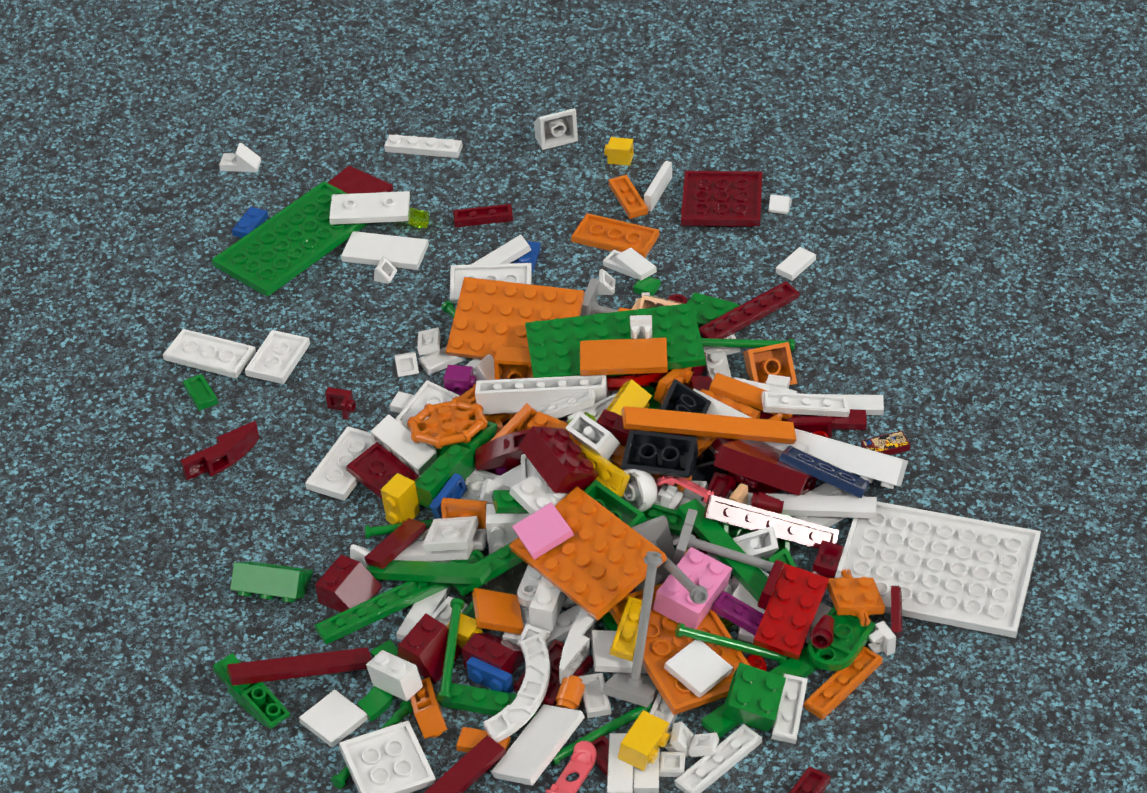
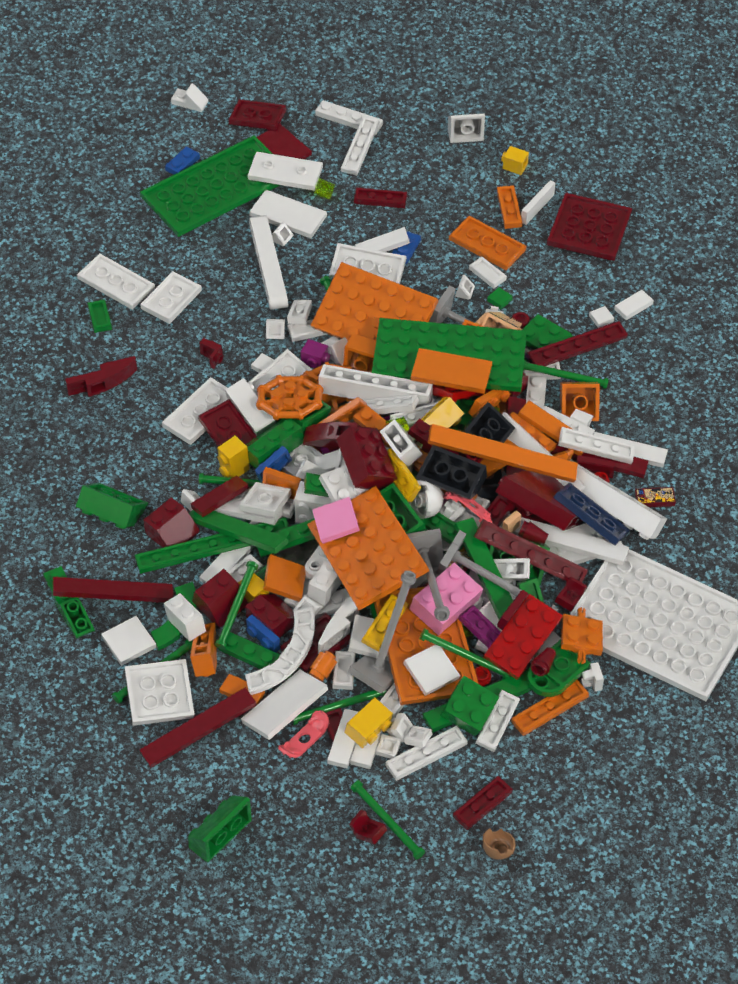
camera: 10 degrees right, 10 degrees up
(321, 161) = (257, 114): none -> dark red tile
(378, 301) = (268, 262): none -> white beam
(444, 169) = (360, 145): none -> white tile
(635, 264) = (495, 275): white tile -> none
(641, 326) = (473, 346): white tile -> none
(764, 281) = (601, 317): none -> white tile
(779, 204) = (638, 243): white slope -> none
(896, 611) = (611, 657): dark red tile -> none

